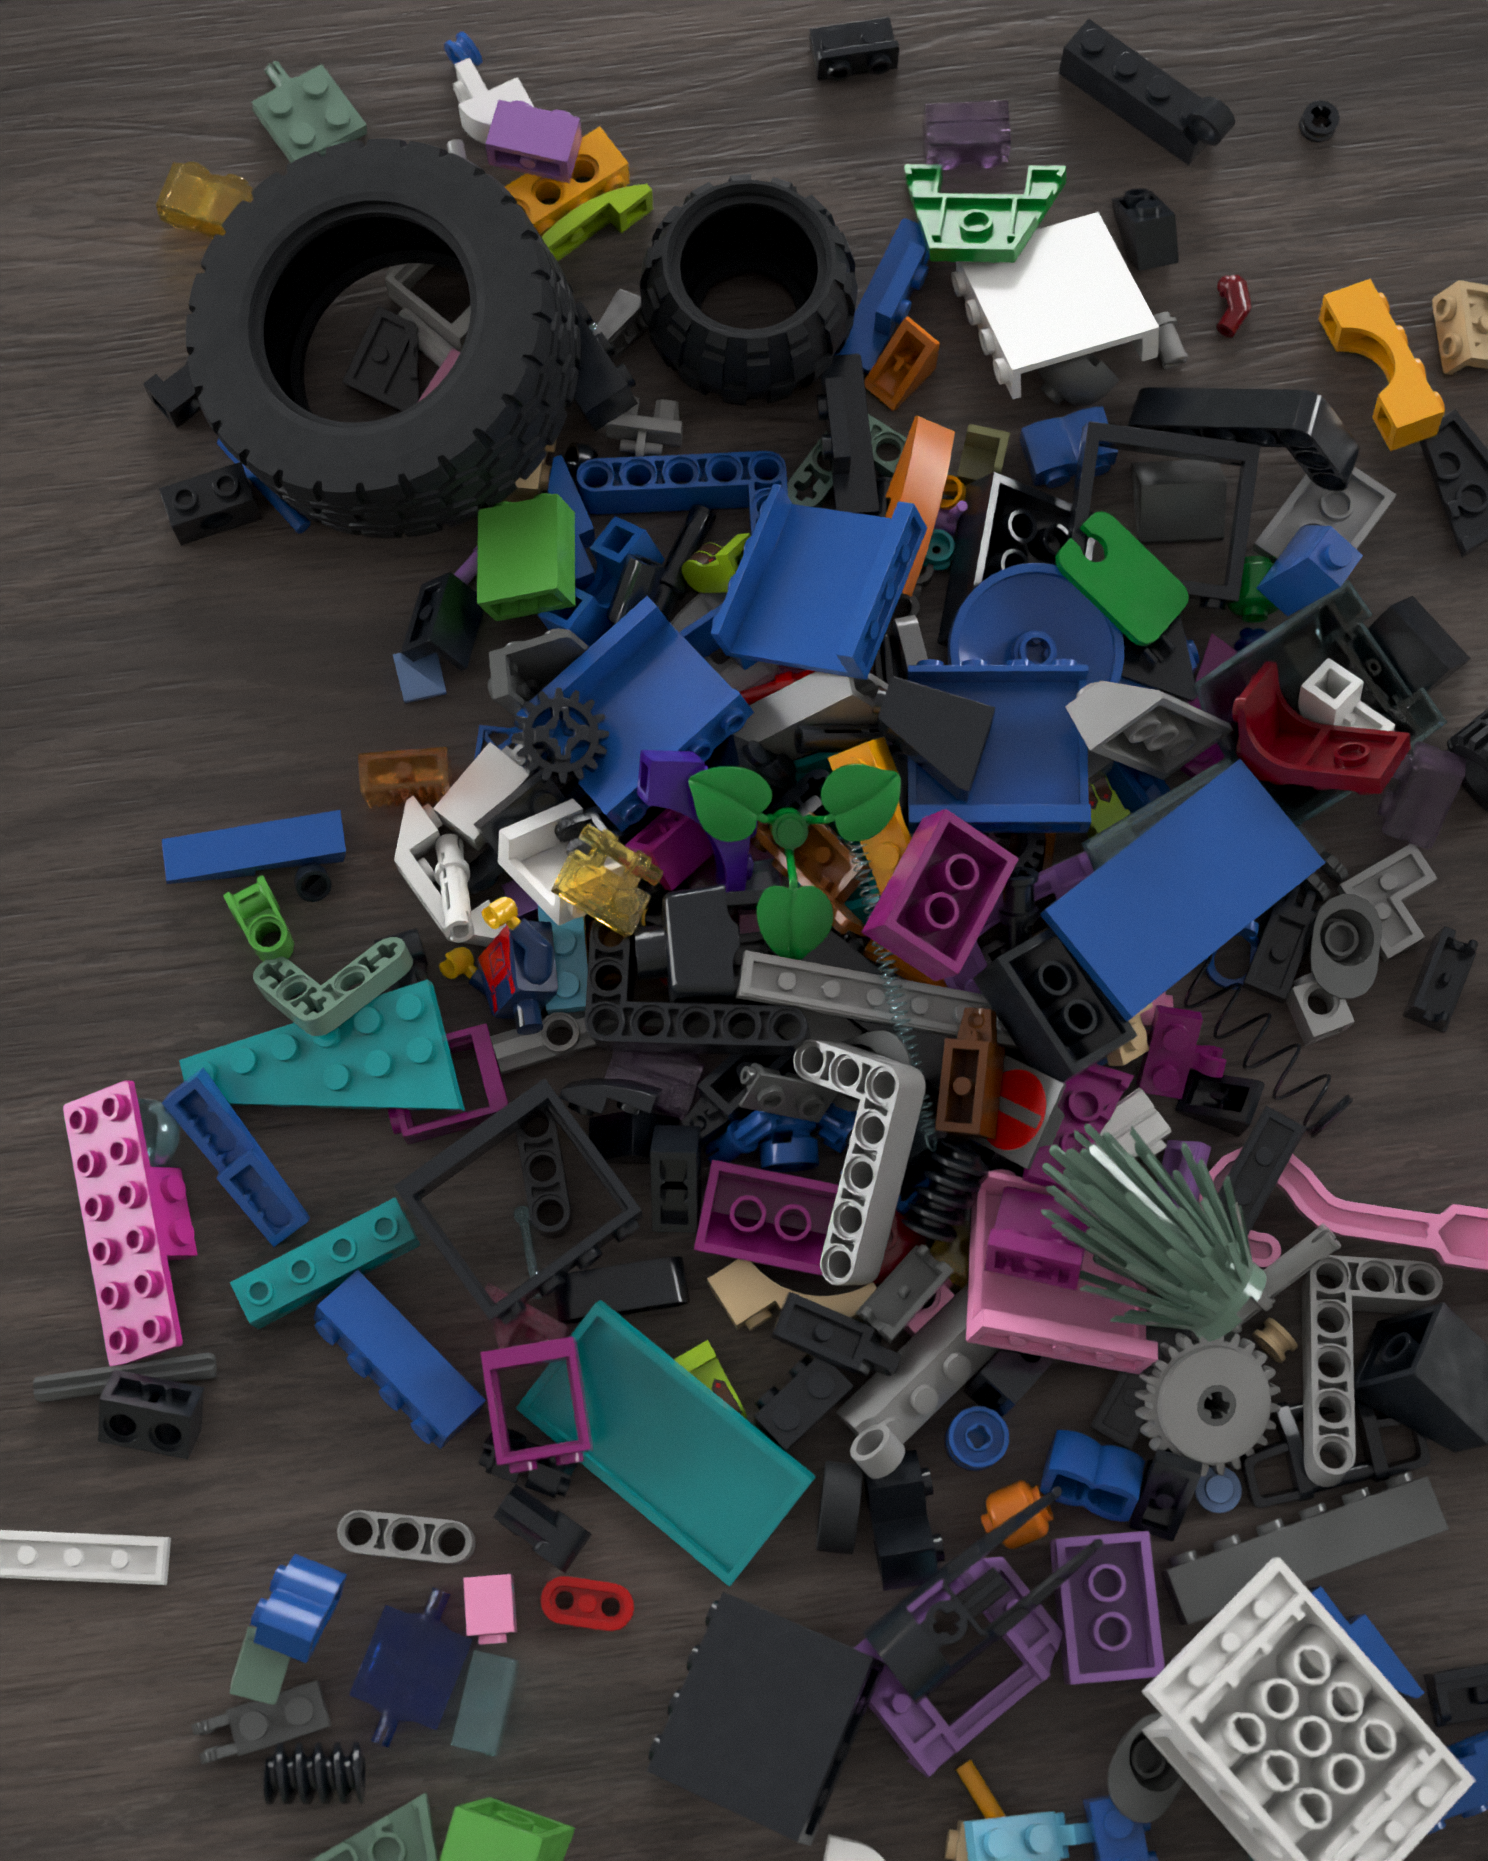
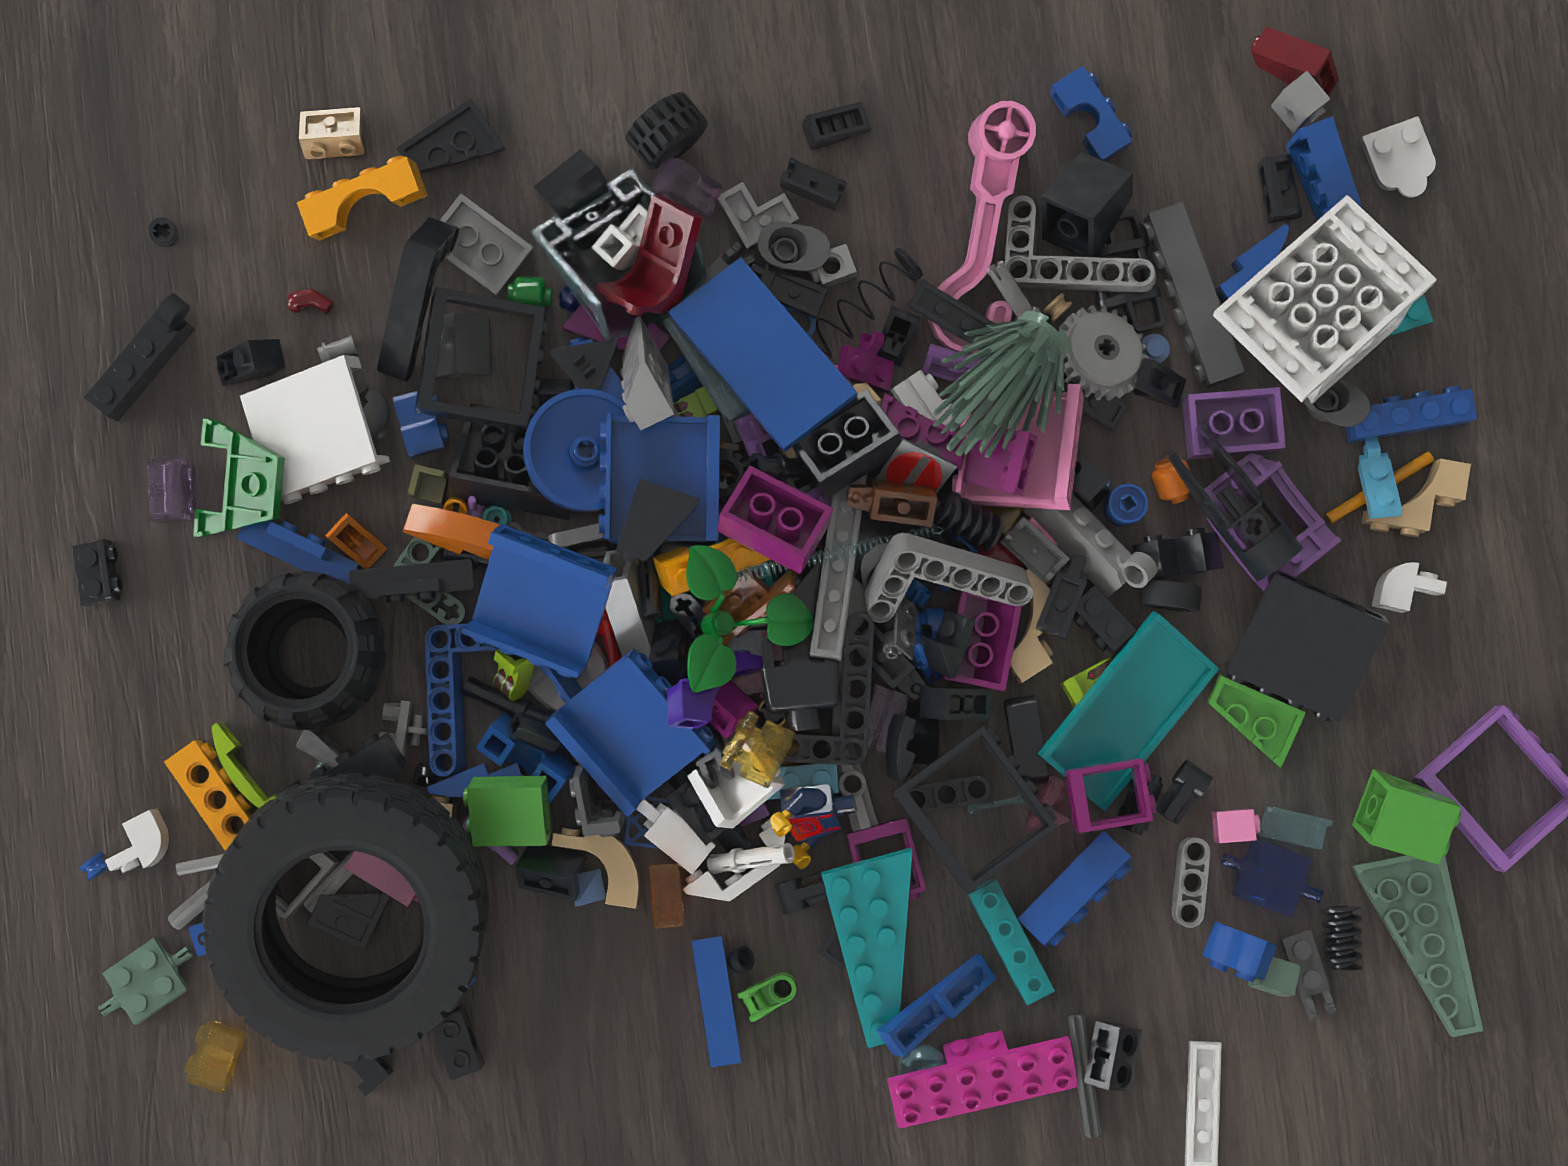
camera: 90 degrees left, 10 degrees up
(376, 968) = (830, 941): sand green beam -> none
(455, 713) = (618, 860): none -> tan arch
(534, 140) = (178, 809): medium lavender brick -> none
(540, 738) = (648, 798): black gear -> none
(587, 1604) = (1234, 762): red plate -> none
(653, 1650) = (1260, 718): none -> bright green wing
(754, 1161) = (948, 648): none -> black slope
(1093, 1475) = (1148, 429): blue brick -> none
(1129, 582) = (539, 382): green piece -> none
(1309, 568) = (526, 257): blue slope -> none

